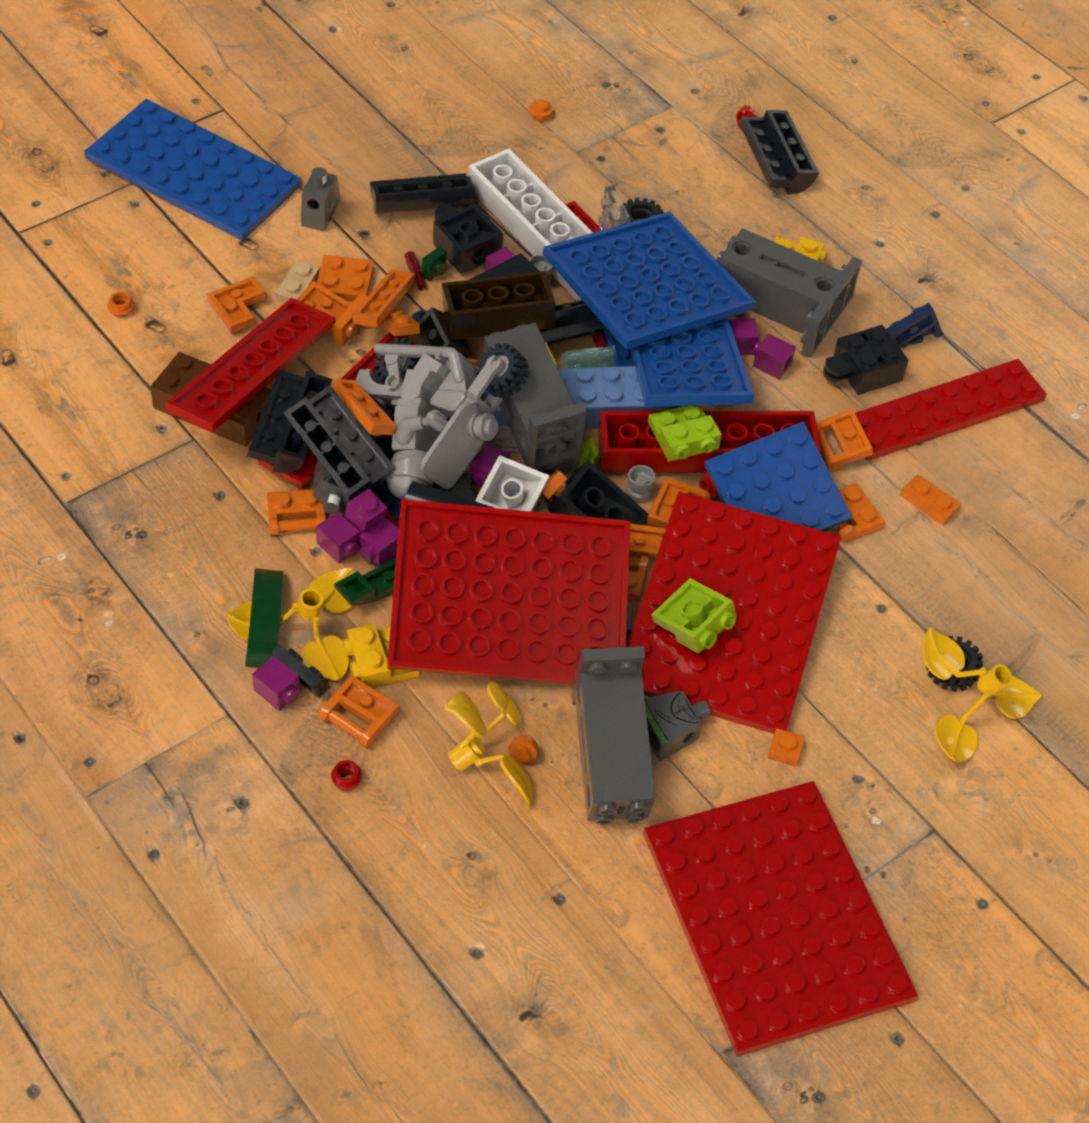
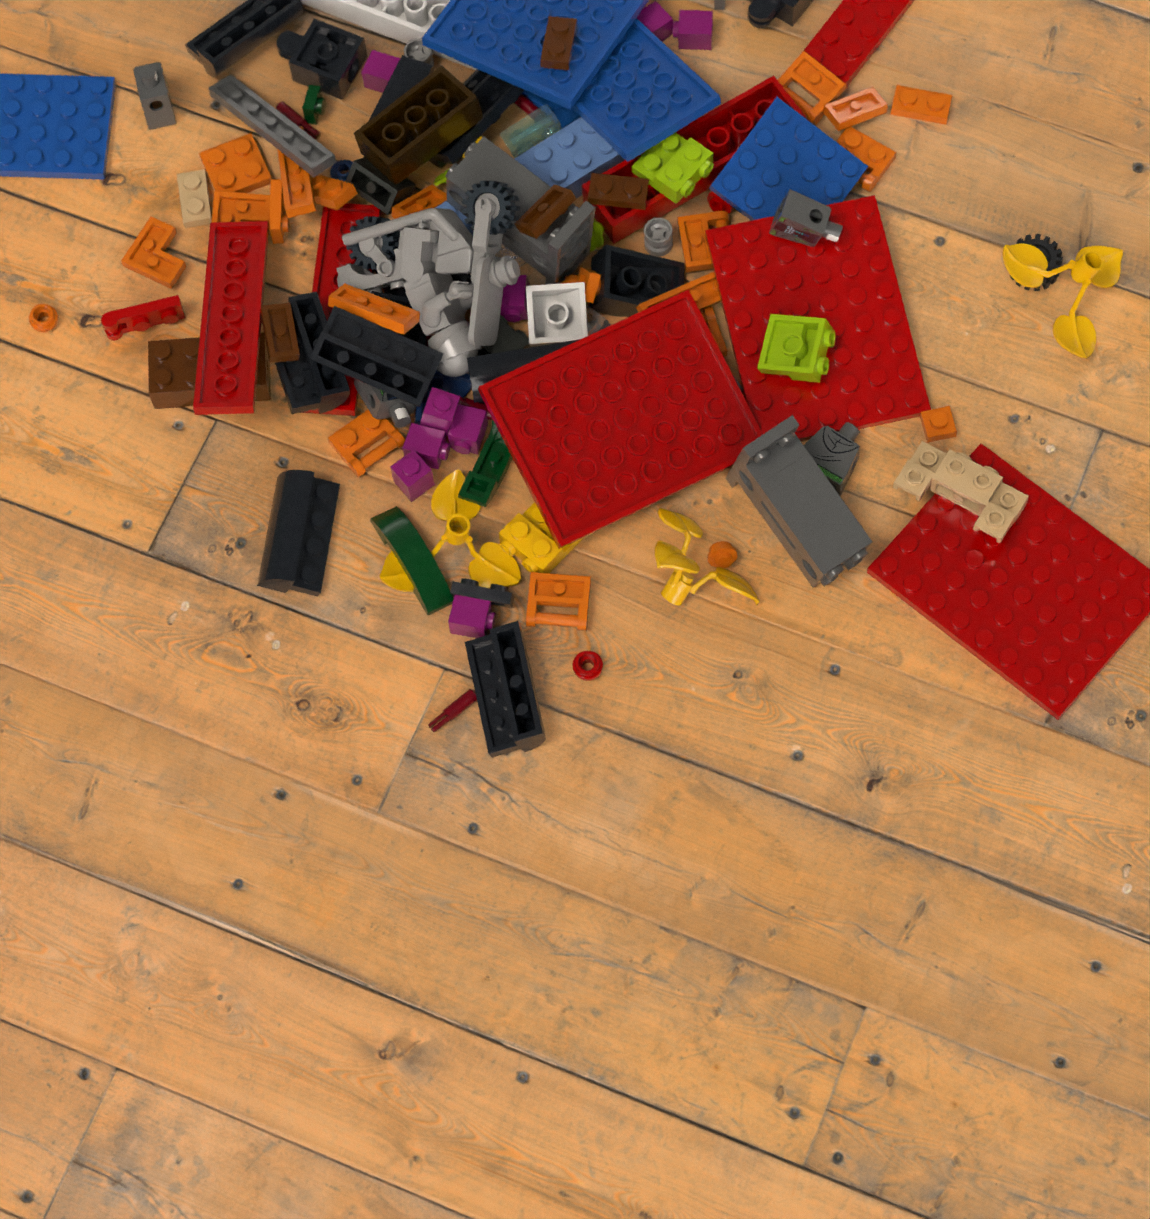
camera: 20 degrees left, 15 degrees up
(189, 549) = (298, 533): none -> black brick
(192, 338) = (142, 316): none -> red plate
(209, 749) = (453, 709): none -> dark red pin
(260, 755) = (505, 690): none -> black brick
(279, 390) = (279, 332): none -> reddish brown plate
(310, 553) = (412, 475): none -> magenta brick
(390, 259) = (272, 125): none -> dark grey plate
(554, 396) = (545, 211): none -> reddish brown plate
(626, 428) = (618, 191): none -> reddish brown plate
(648, 299) = (558, 43): none -> reddish brown plate
(763, 517) = (803, 220): none -> dark grey torso
(774, 801) = (965, 484): none -> tan bracket
(870, 473) = (855, 108): none -> orange plate

